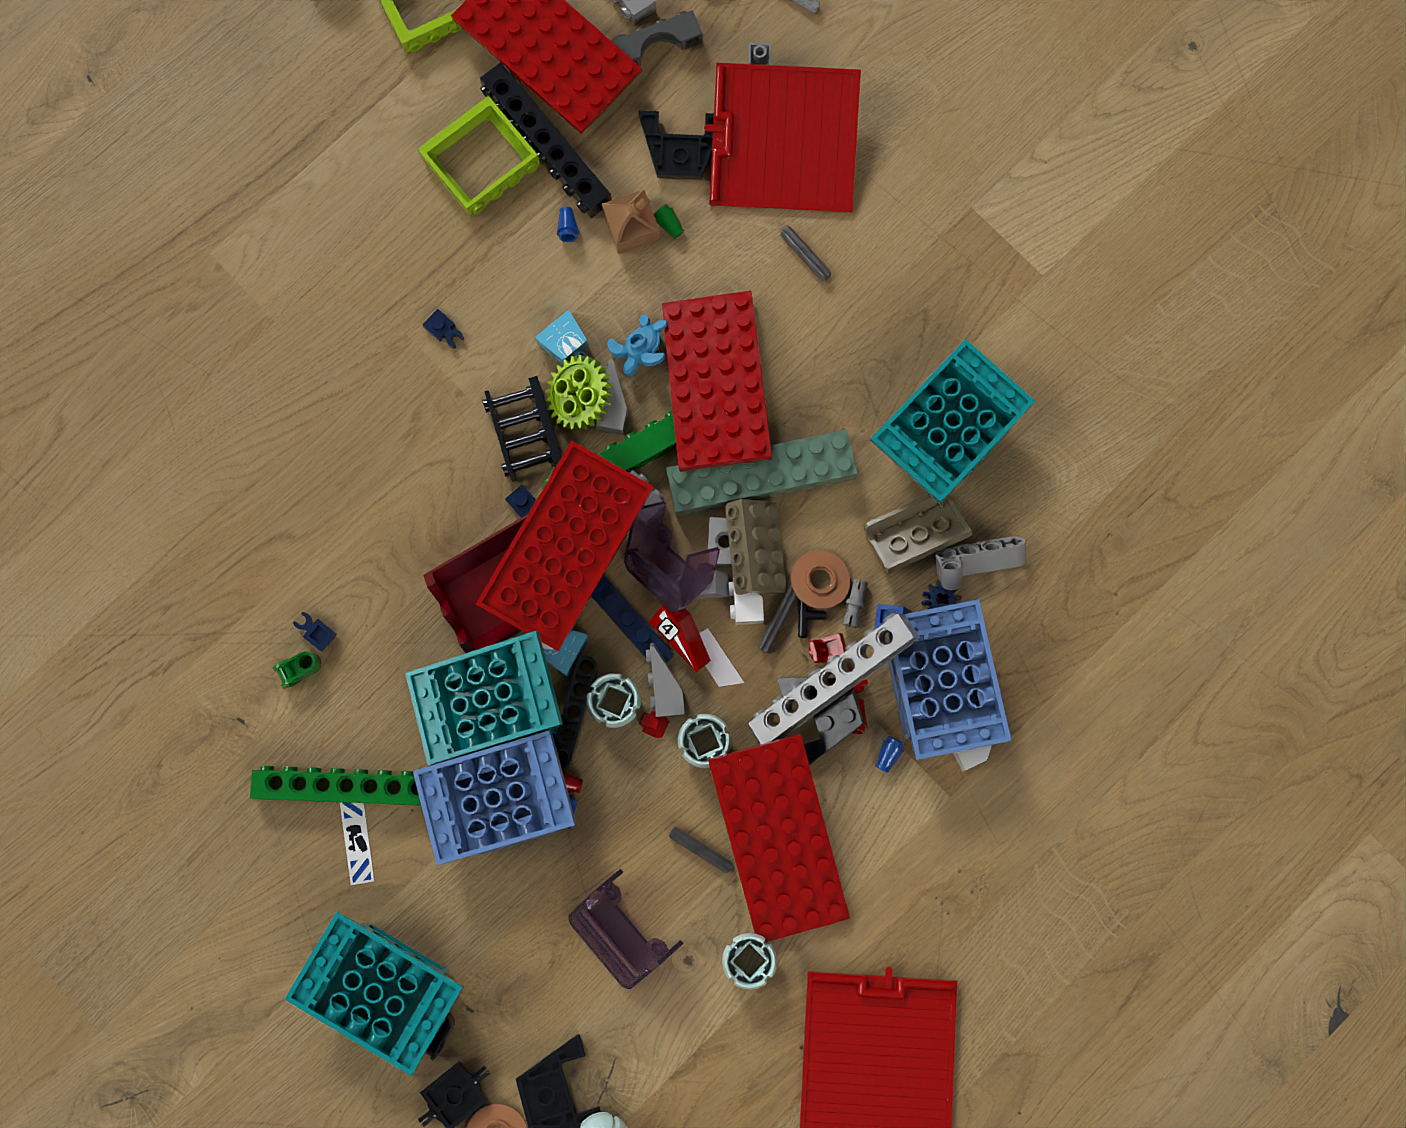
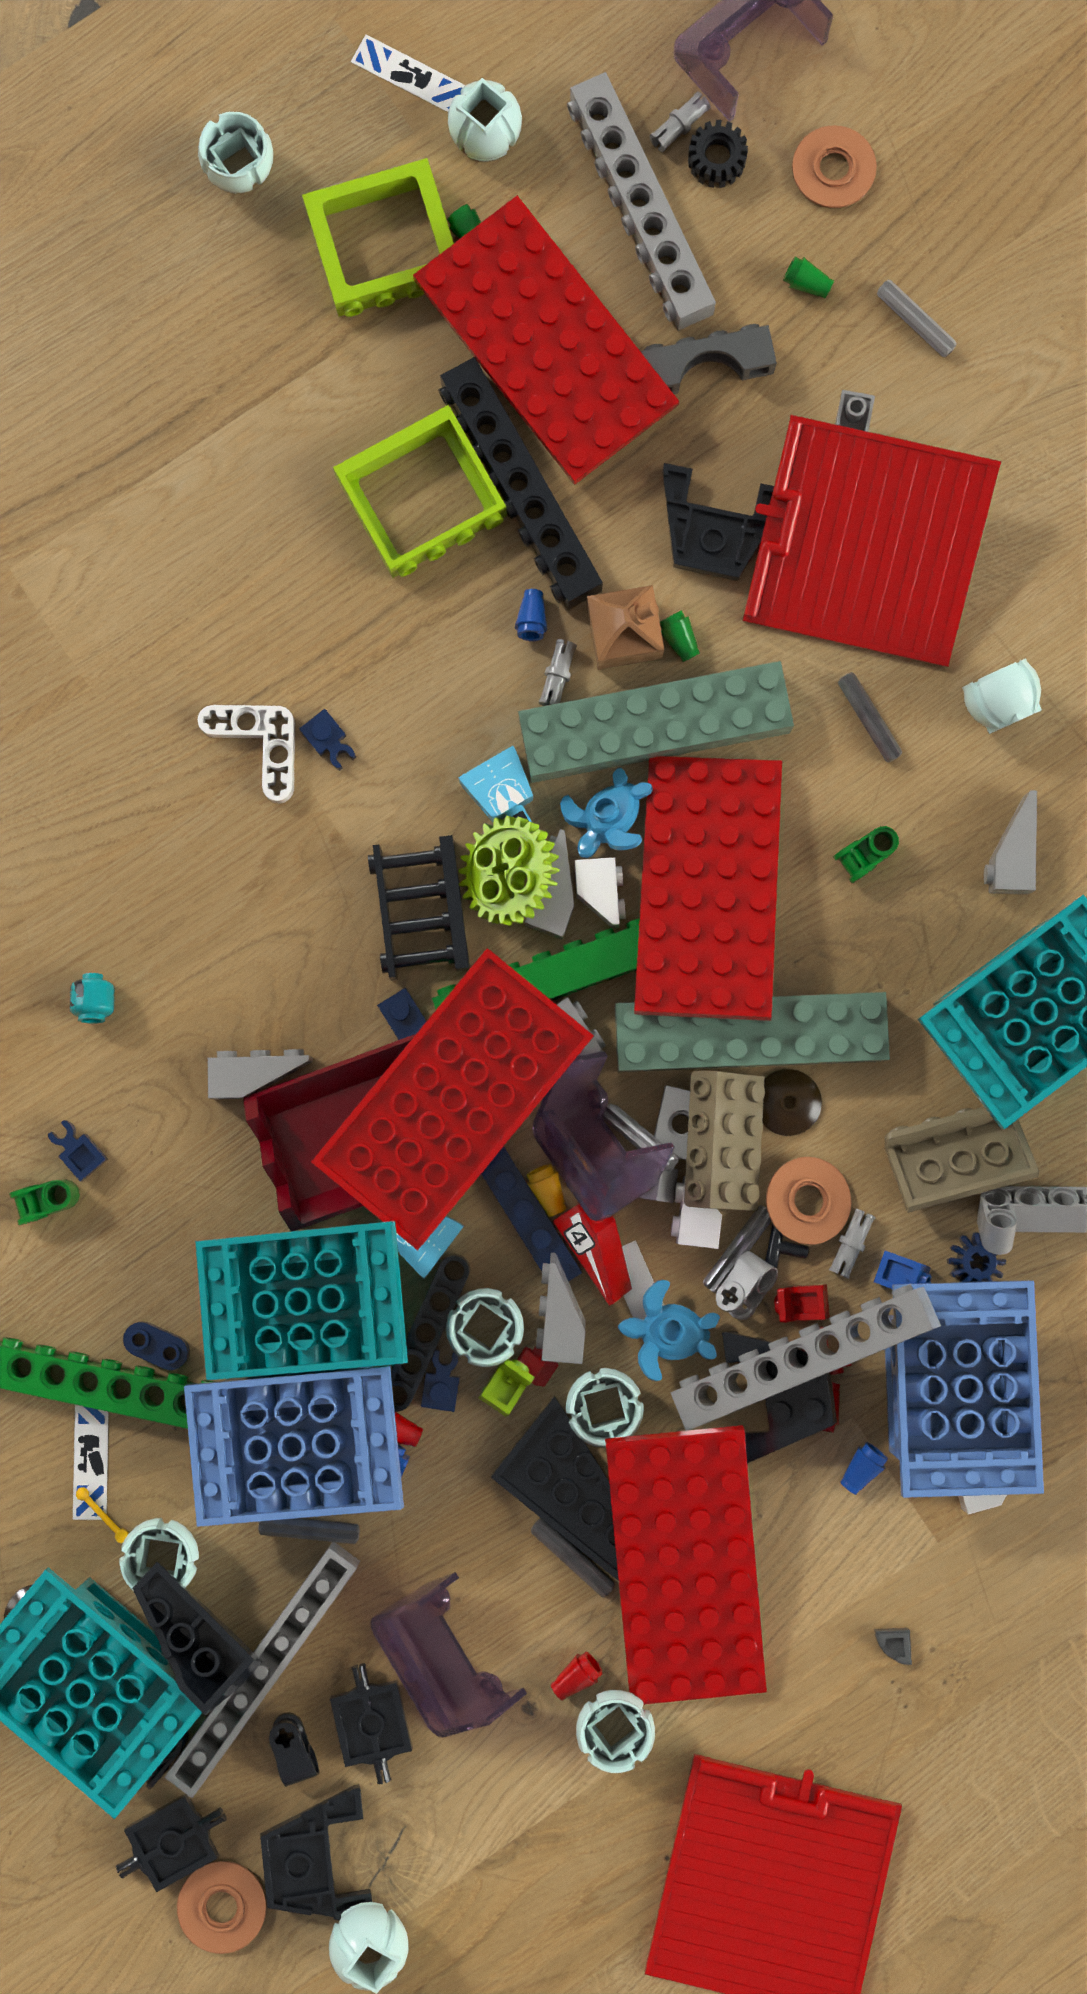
camera: 10 degrees right, 5 degrees up
(309, 527) = (92, 998): none -> teal head
(386, 890) = (83, 1495): none -> yellow hinge
(389, 755) = (155, 1345): none -> dark blue plate
(397, 329) = (261, 729): none -> white beam
(398, 897) = (137, 1545): none -> light aqua piece
(415, 562) = (242, 1076): none -> light grey slope
(451, 949) = (199, 1647): none -> black wedge
(498, 962) = (276, 1652): none -> light grey brick
(515, 862) = (311, 1530): none -> flat silver axle
(531, 1021) = (293, 1755): none -> black piece
(580, 988) = (371, 1723): none -> black plate
(590, 750) = (440, 1387): none -> dark blue plate
(591, 260) = (557, 673): none -> light grey pin
(635, 739) = (506, 1386): none -> lime bracket
(641, 395) = (597, 888): none -> white slope
(641, 602) = (547, 1189): none -> yellow cone
(661, 279) = (656, 721): none -> sand green brick
(685, 549) = (634, 1131): none -> flat silver axle
(685, 800) = (562, 1485): none -> black wing
(717, 930) = (577, 1676): none -> red cone
(739, 683) = (668, 1331): none -> dark azure animal
(789, 642) = (749, 1283): none -> light grey piece
(799, 528) = (807, 1107): none -> dark brown dish
(816, 344) = (865, 853): none -> green piece
(891, 222) = (1004, 696): none -> light aqua piece
(918, 332) = (1014, 859): none -> light grey slope
(933, 871) = (895, 1644): none -> dark grey tile

